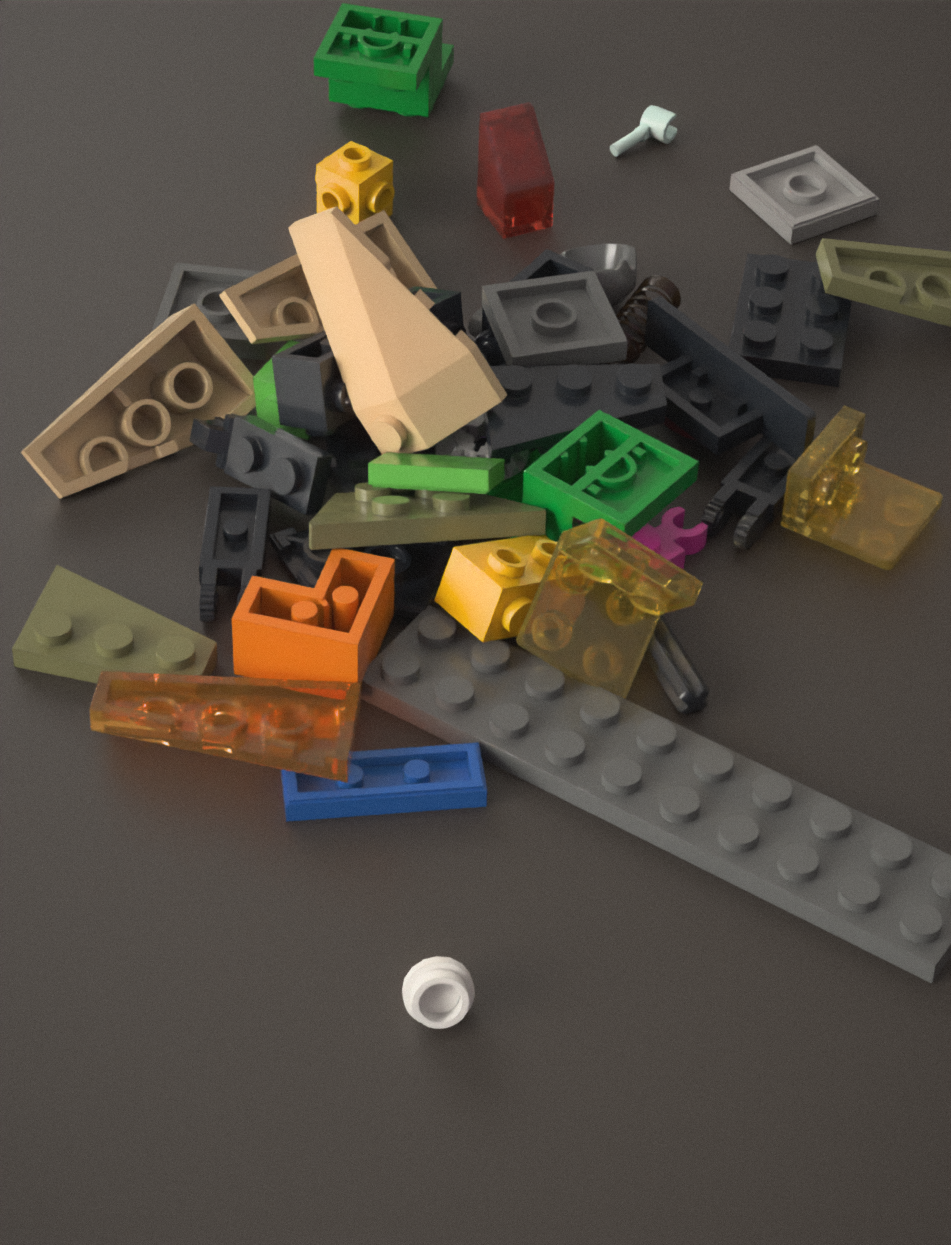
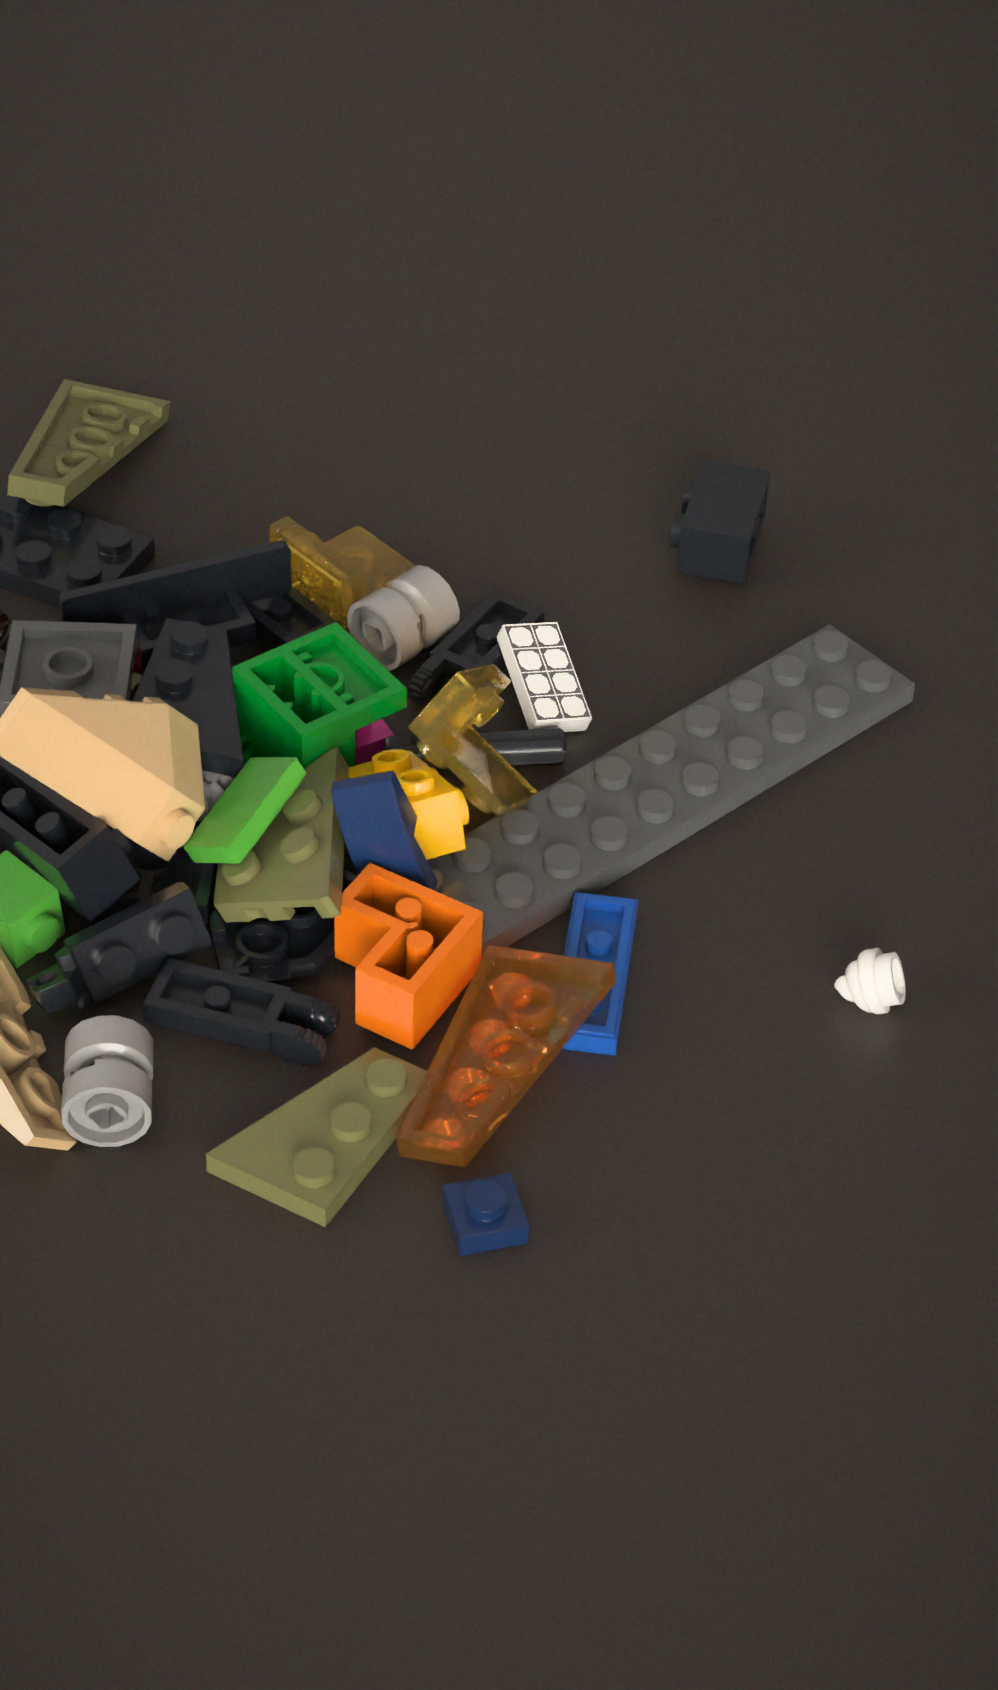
camera: 75 degrees left, 0 degrees up
(45, 757) = (485, 1214): none -> dark blue plate
(118, 481) = (107, 1081): none -> light grey wheel
(421, 549) = (381, 826): none -> dark blue slope
(773, 661) = (544, 676): none -> white tile
(795, 612) = (470, 644): none -> black hinge
(799, 542) = (404, 616): none -> light grey wheel

